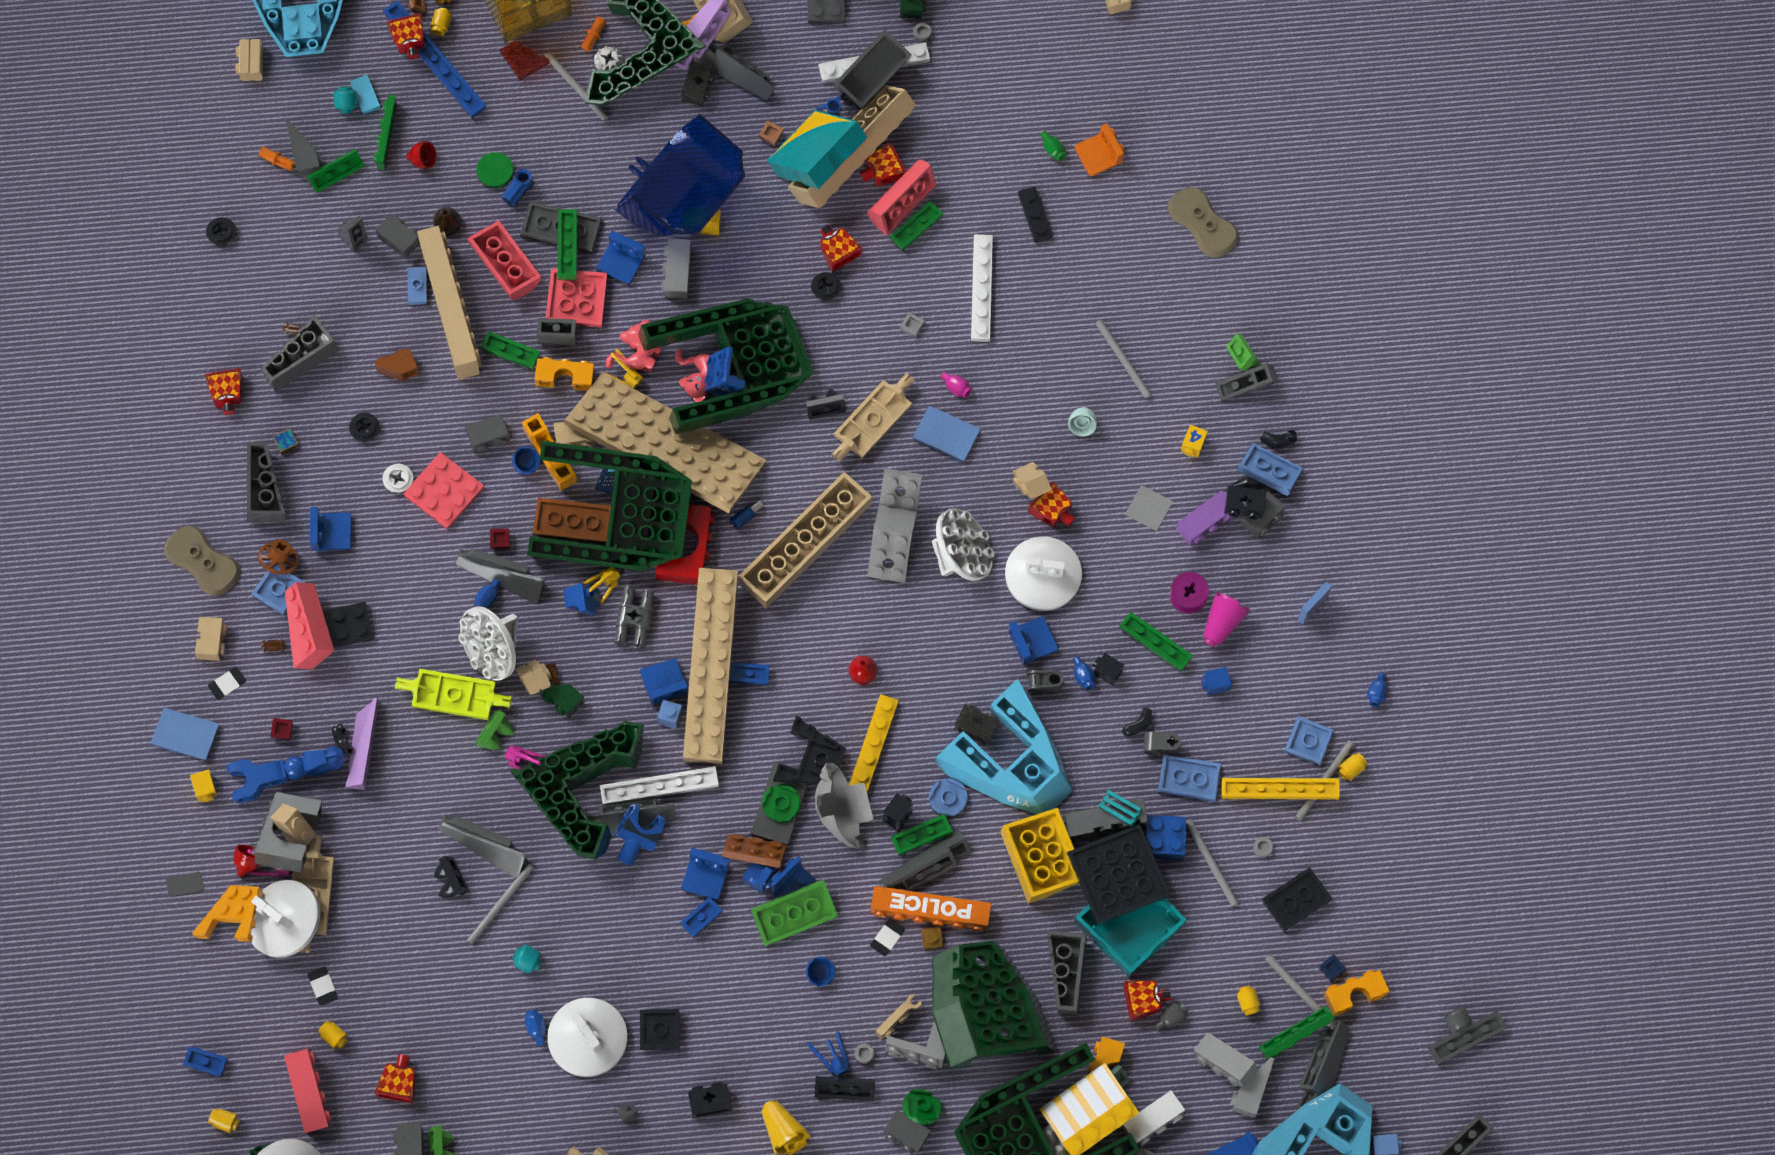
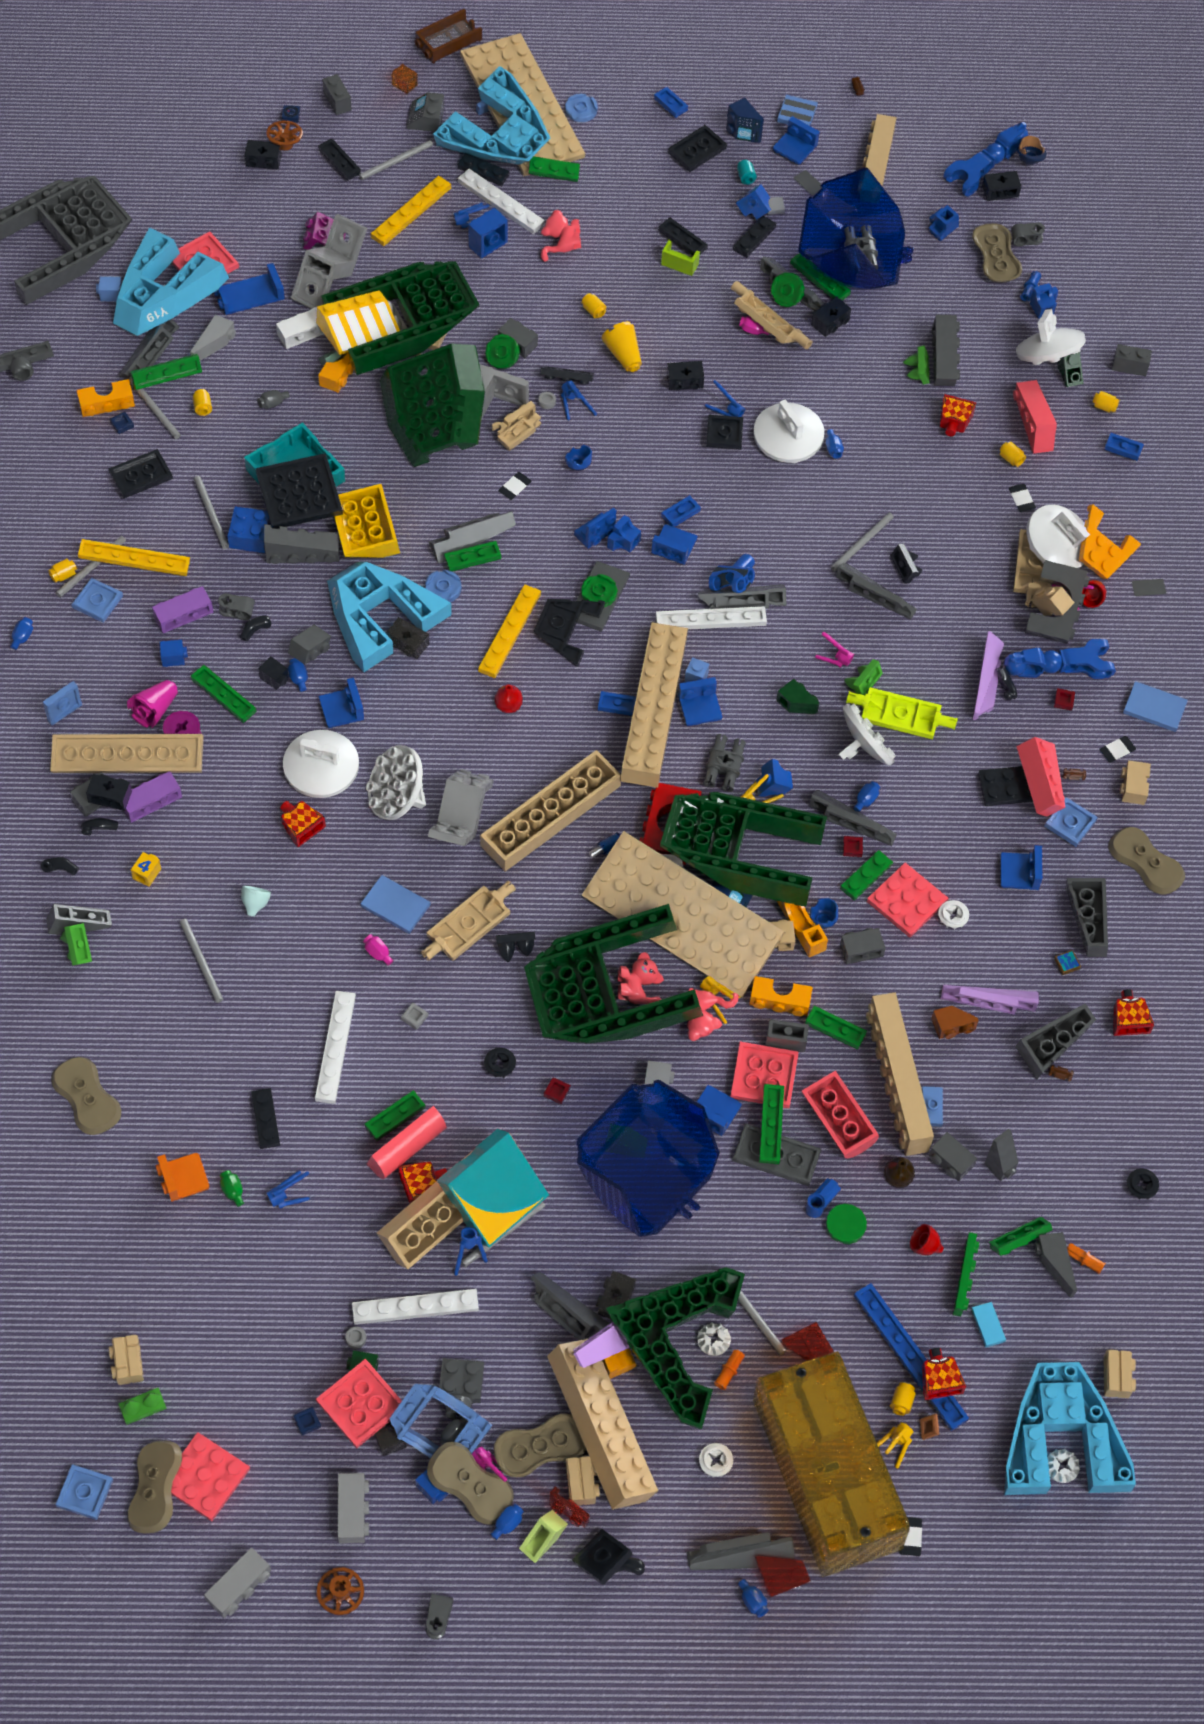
camera: 175 degrees left, 10 degrees down
(203, 786) = (1136, 658): yellow brick -> none
(278, 553) = (1071, 847): dark orange wheel -> none
(345, 99) = (1010, 1314): teal head -> none
(359, 397) = (990, 998): none -> lavender wedge
(366, 419) = (990, 960): black gear -> none
(485, 512) = (866, 875): none -> green plate
(527, 959) = (840, 493): teal head -> none
(534, 676) = (825, 710): tan brick -> none
(553, 672) = (806, 722): reddish brown piece -> none
(571, 520) = (780, 853): dark orange plate -> none
(572, 767) = (806, 605): dark green wedge -> none
(626, 1112) = (757, 376): dark grey piece -> none
(651, 1061) = (734, 407): none -> blue plant
(718, 370) = (621, 963): blue bracket -> none
(754, 850) = (628, 551): dark orange plate -> none
(769, 263) = (557, 1090): none -> dark red plate
(771, 133) = (540, 1233): nougat plate -> none
(794, 912) = (596, 503): bright green plate -> none
(838, 247) = (481, 1098): red torso -> none
(842, 806) = (545, 571): light grey animal -> none
(872, 70) = (419, 1280): dark grey piece -> none
(890, 1002) = (519, 431): none -> tan plate
(898, 811) = (492, 567): black brick -> none
(930, 908) = (471, 496): orange brick -> none
(931, 938) = (474, 478): pearl gold plate -> none
(1010, 143) = (278, 1195): none -> blue plant
(1031, 480) = (317, 834): tan brick -> none
(1043, 681) = (336, 668): dark grey piece -> none
(1067, 964) = (357, 443): dark grey wedge -> none
(1076, 700) = (309, 644): none -> dark grey brick
(1106, 799) = (289, 536): teal tile -> none
(1144, 998) = (293, 411): torso -> none
(1148, 508) = (204, 818): light grey sticker -> none
(1189, 778) = (216, 578): medium blue tile -> none
(1217, 734) = (182, 609): none -> medium lavender brick
(1225, 1060) = (233, 354): light grey brick -> none
(1237, 555) = (127, 753): none -> tan plate
(1263, 847) = (161, 519): light grey tile -> none
(1270, 469) = (75, 834): medium blue tile -> none

